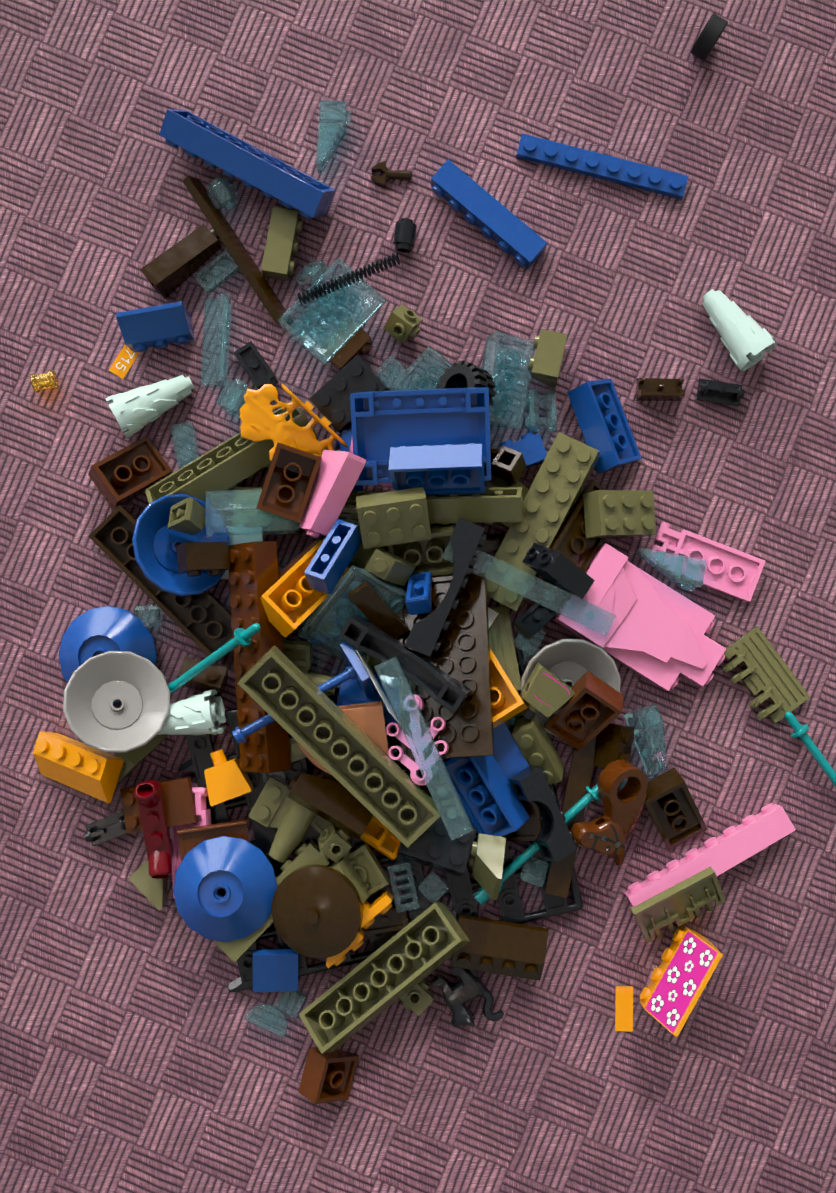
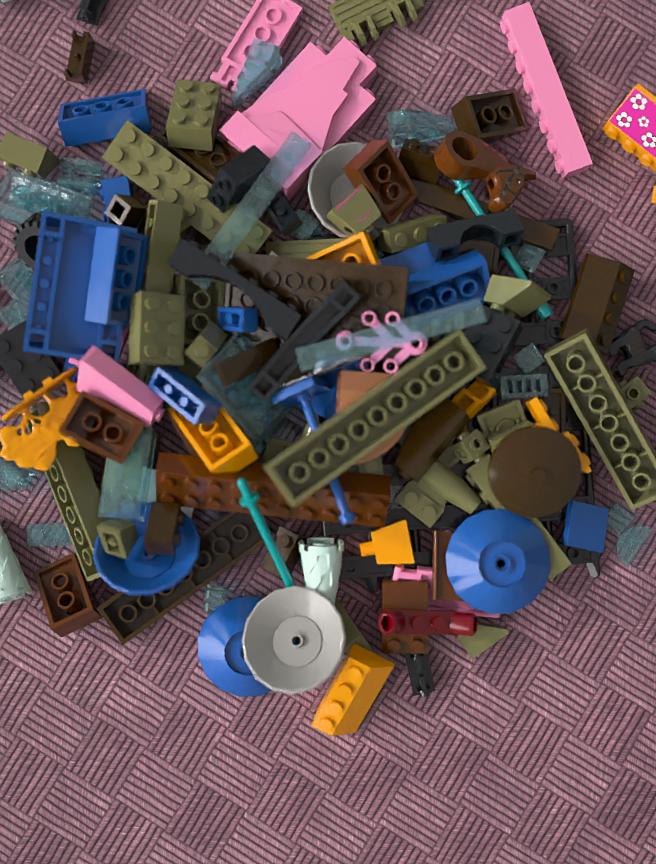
camera: 80 degrees left, 0 degrees up
(678, 904) = (582, 124): olive hinge -> none

